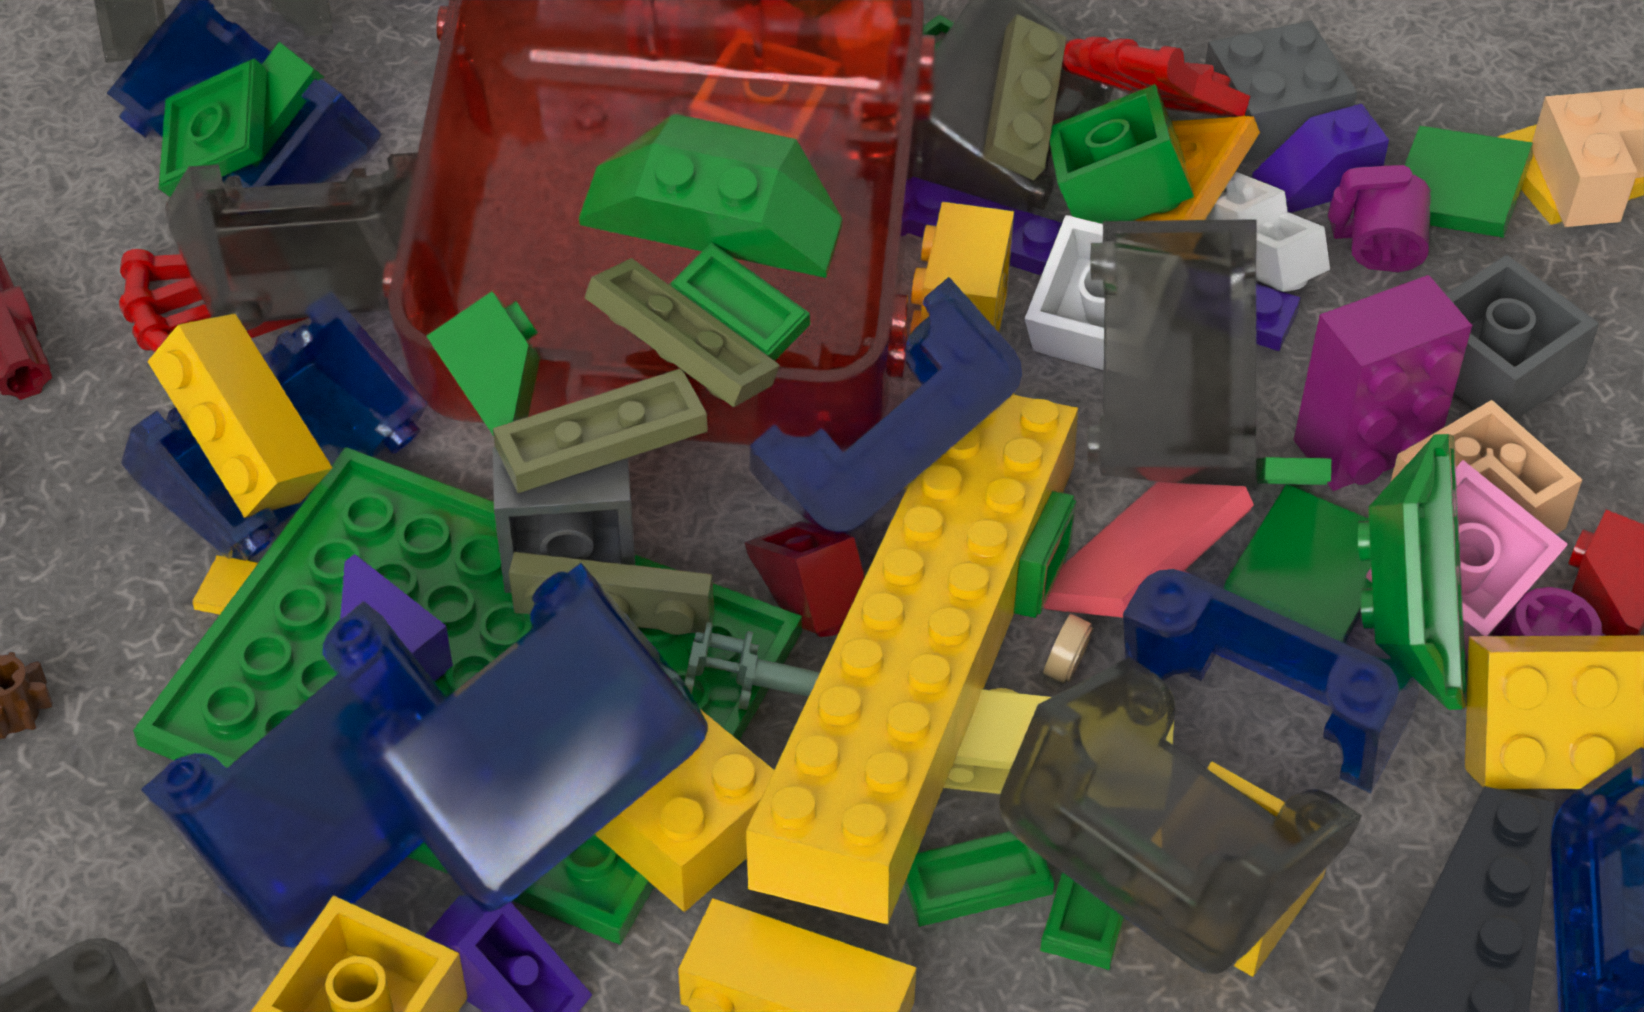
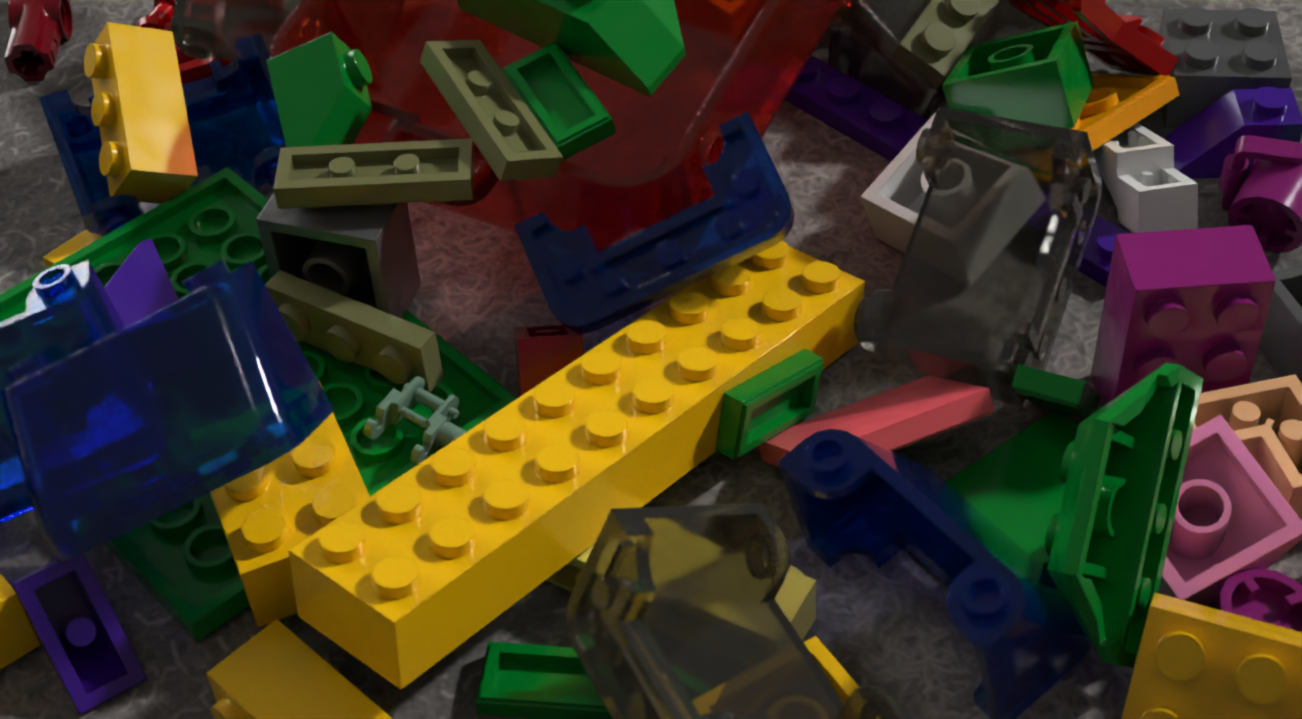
camera: 25 degrees right, 5 degrees down
(973, 251) = (826, 156): yellow brick -> none
(1068, 649) = (759, 486): tan tile -> none

